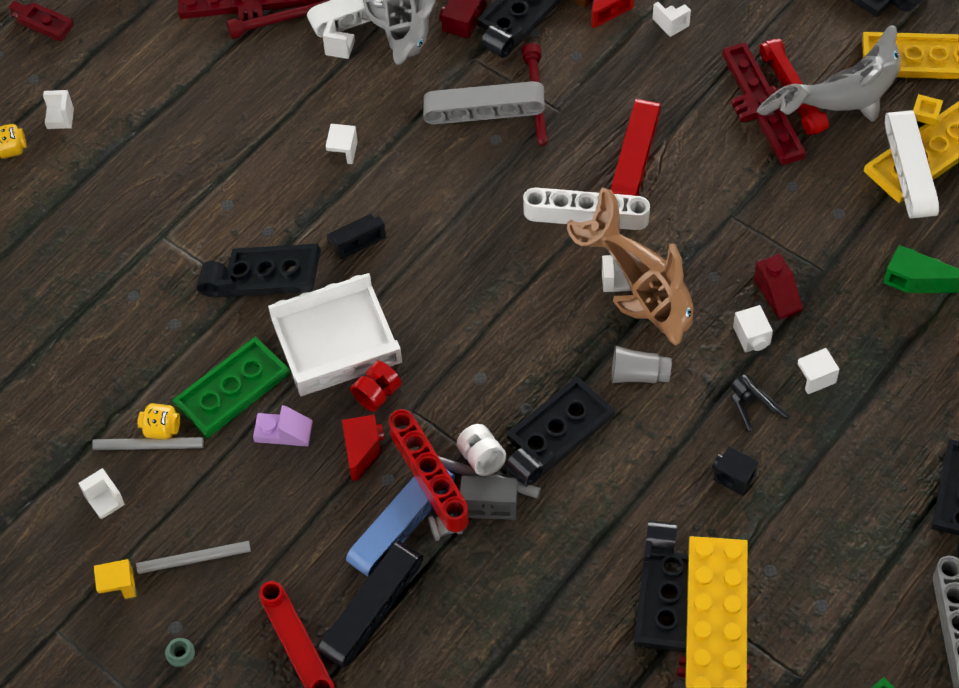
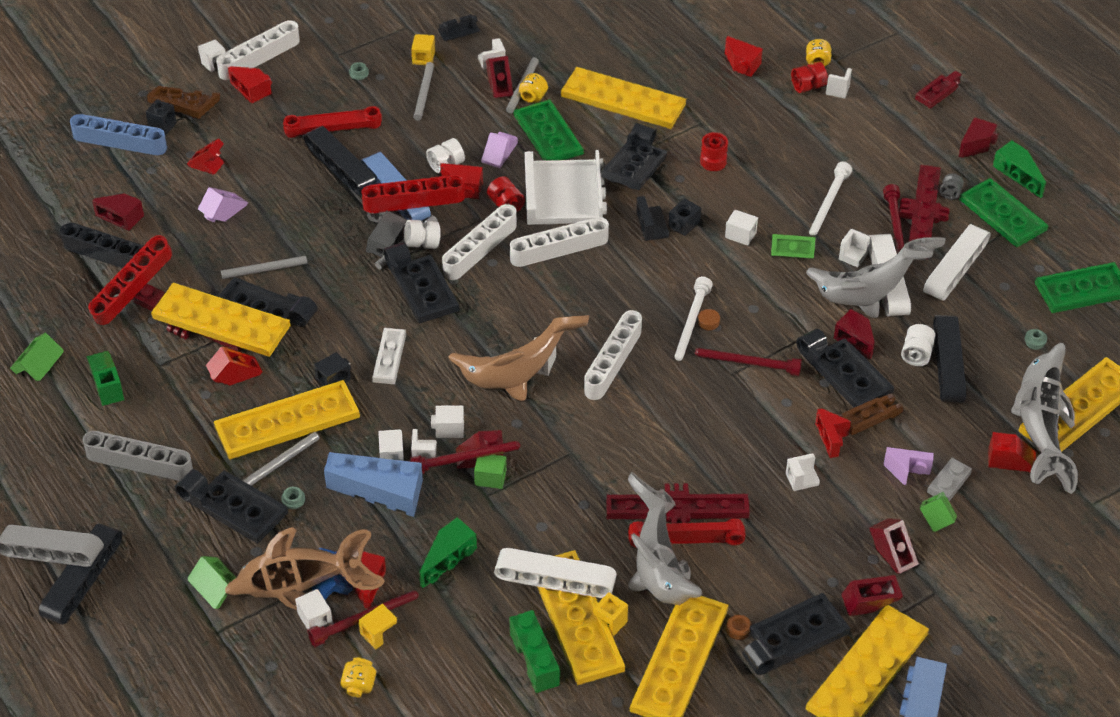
camera: 105 degrees right, 10 degrees down
(33, 215) = (743, 56): none -> red slope
(52, 556) = (451, 29): none -> black hinge
(58, 138) = (809, 77): none -> red wheel
(140, 326) = (623, 97): none -> yellow plate
(145, 468) = (499, 76): none -> dark red slope
(213, 77) = (841, 173): none -> white piece
(225, 196) = (714, 151): none -> red wheel
(324, 476) = (447, 152): none -> white wheel
(340, 192) = (684, 217): none -> black brick
(347, 95) = (793, 246): none -> bright green panel
(433, 320) = (559, 241): none -> white beam
(450, 158) = (702, 287): none -> white piece
(472, 399) = (479, 242): none -> white beam
(483, 103) = (747, 318): light grey beam -> none
(491, 144) = (708, 319): none -> dark orange tile
(593, 623) = (234, 272): none -> light grey bar
(636, 148) = (660, 403): red beam -> none
(639, 366) = (450, 339): light grey plant -> none
(677, 428) = (389, 356): none -> white tile
(747, 390) = (397, 401): black plant -> none
(779, 580) = (232, 366): none -> red slope
(800, 344) = (423, 448): none -> white panel
(803, 265) = (490, 471): none -> bright green panel
(824, 335) = (465, 455): none -> dark red piece
(827, 494) = (286, 419): none -> yellow plate
(869, 366) = (376, 480): none -> medium blue wedge
(875, 23) = (738, 627): none -> dark orange tile
(881, 481) = (281, 459): none -> light grey bar
(930, 438) = (293, 493): none -> sand green plate

